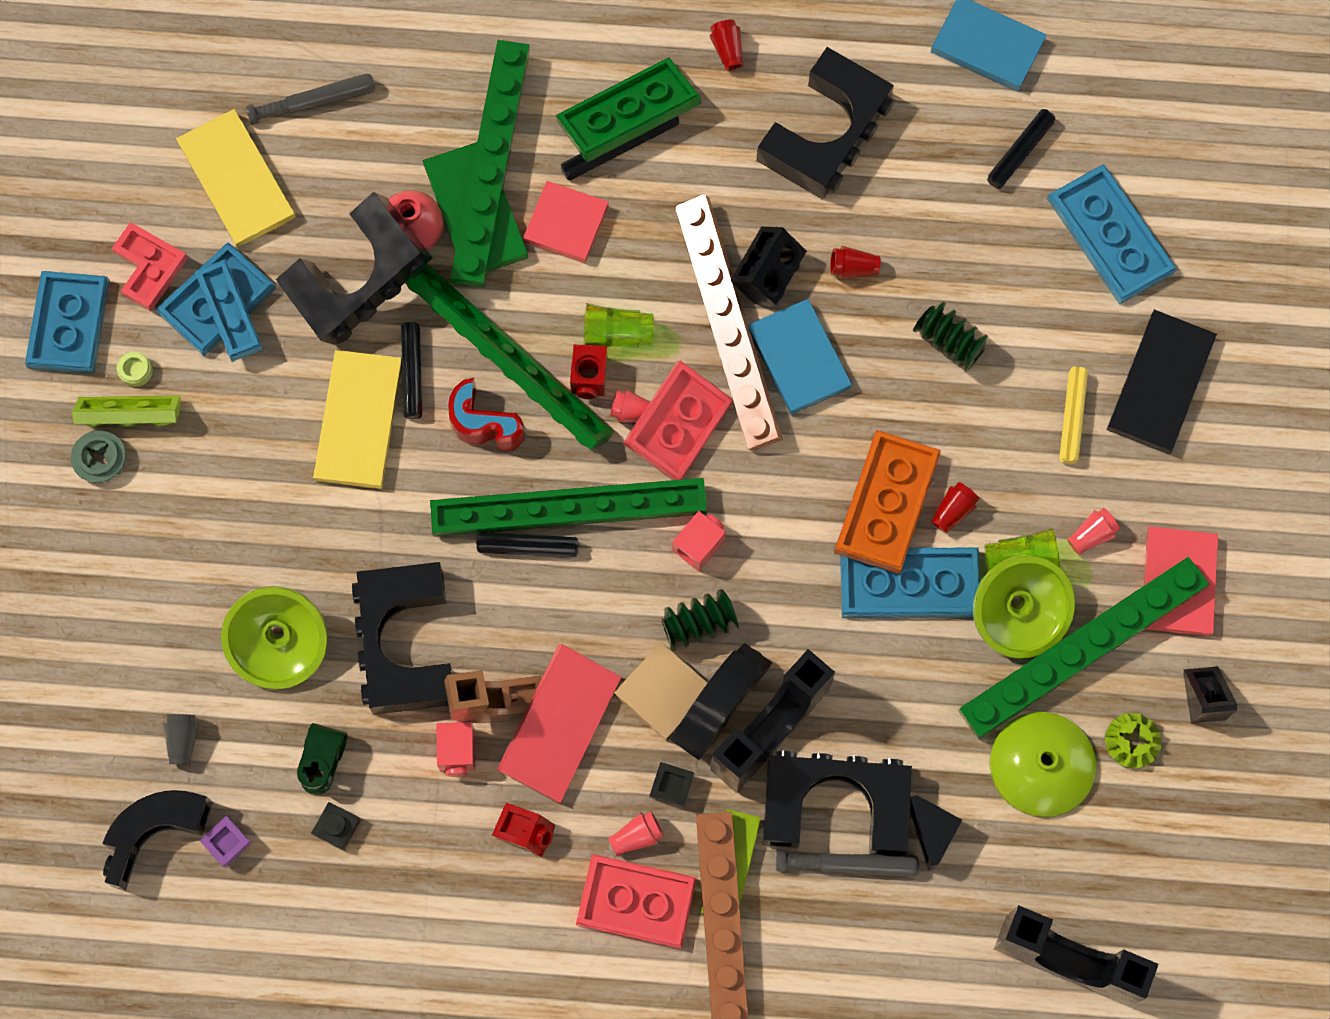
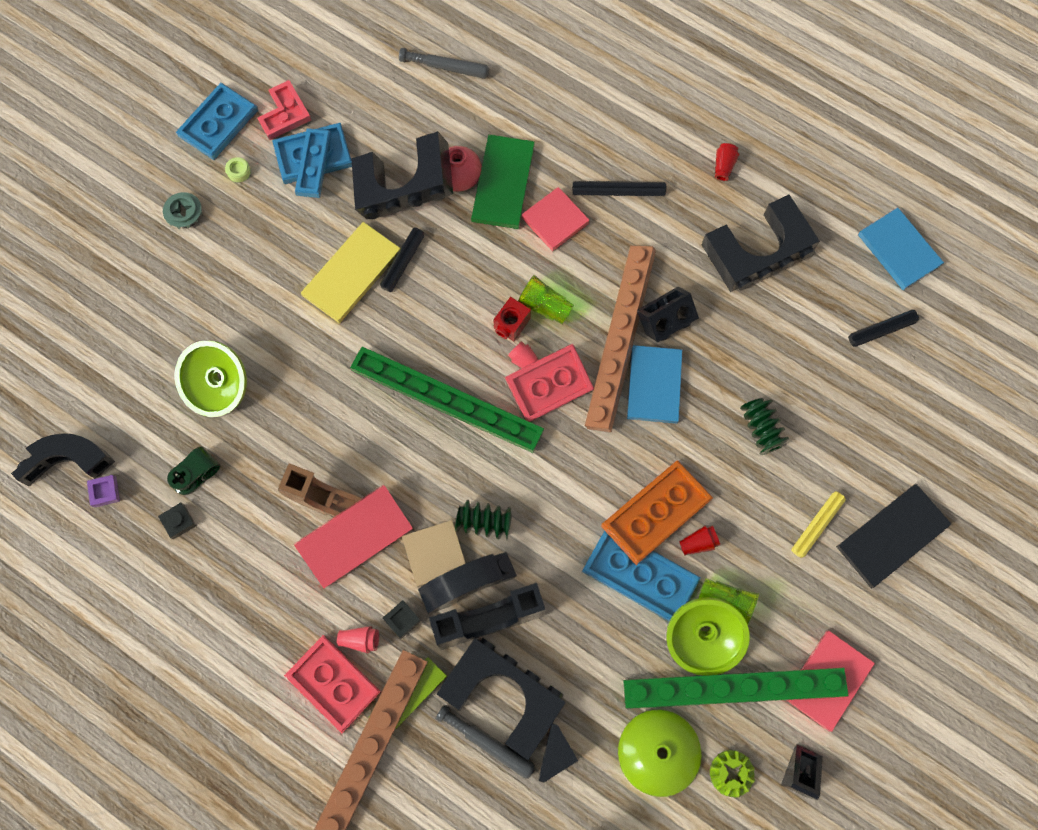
camera: 30 degrees right, 0 degrees up
(126, 410) = (215, 191): lime plate -> none
(180, 737) = (118, 409): dark grey cone -> none
(236, 178) = (369, 87): light yellow tile -> none
(381, 596) = (290, 391): black arch -> none
(455, 748) = (279, 514): coral brick -> none
(479, 425) = (424, 318): red animal -> none
(490, 164) = (527, 158): green plate -> none
(510, 358) = (467, 285): green plate -> none
(524, 829) = (289, 593): red bracket -> none
(527, 545) = (406, 409): black axle -> none
(628, 109) = (637, 169): green tile -> none
(699, 540) = (517, 467): coral brick -> none
(853, 263) = (726, 342): red cone -> none
(1094, 531) = (788, 611): coral cone -> none
(1111, 234) = (914, 417): dark azure tile -> none

